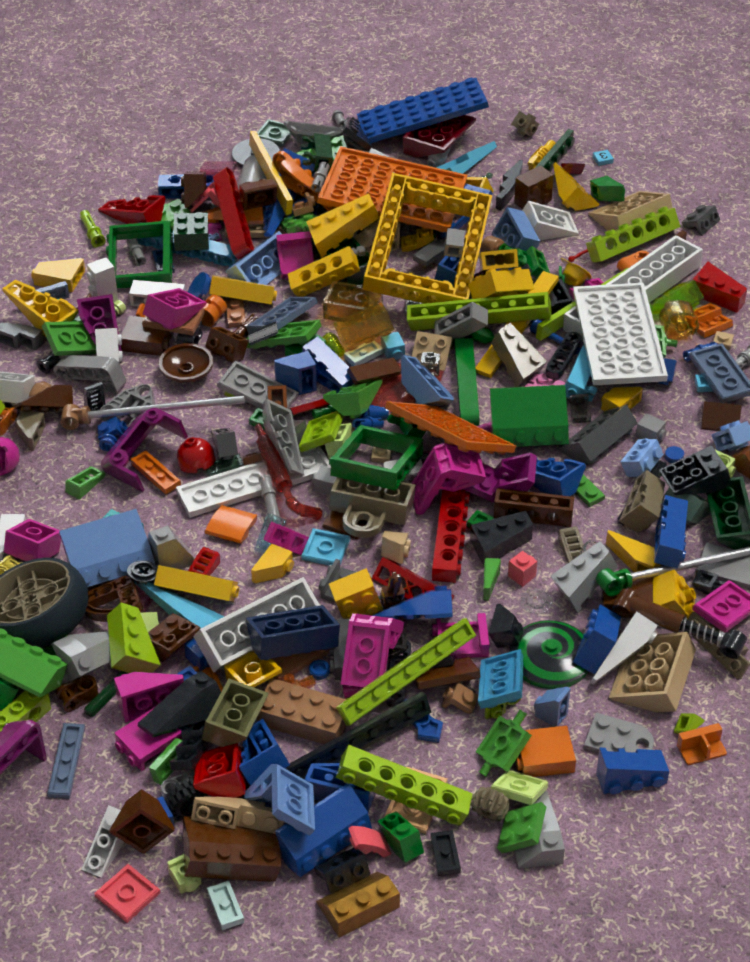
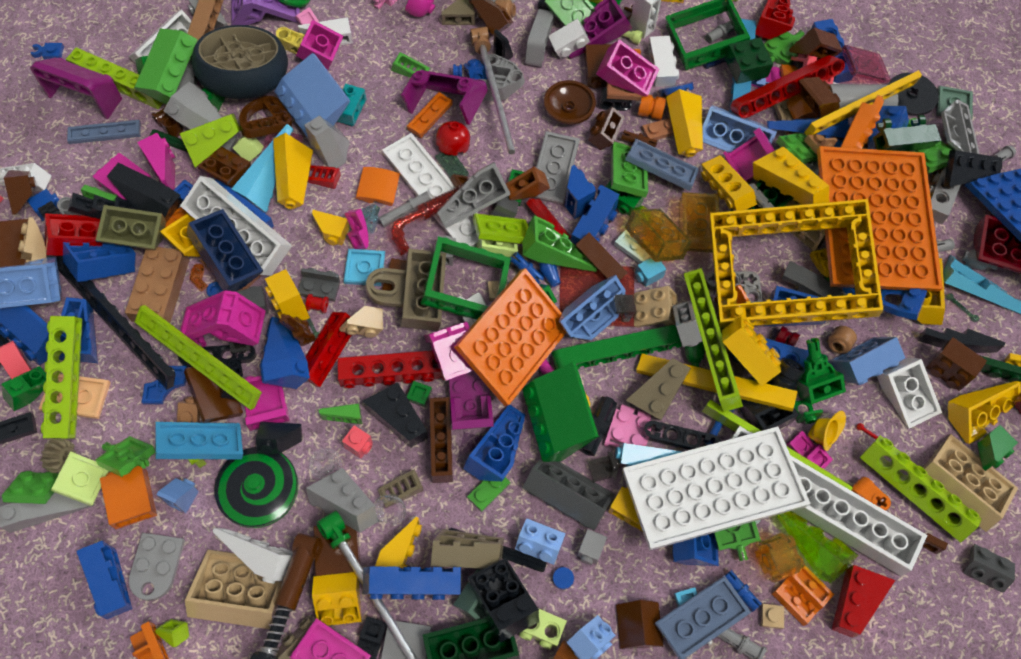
camera: 75 degrees right, 20 degrees up
(143, 567) = (288, 120): black gear -> none
(225, 443) = (473, 154): dark grey slope -> none
(263, 333) = (620, 151): sticker -> none
(320, 177) = (860, 142): light grey pin -> none
(454, 242) = (787, 285): light grey brick -> none
(498, 259) = (779, 332): yellow slope -> none
(598, 638) = (267, 526): blue wedge -> none

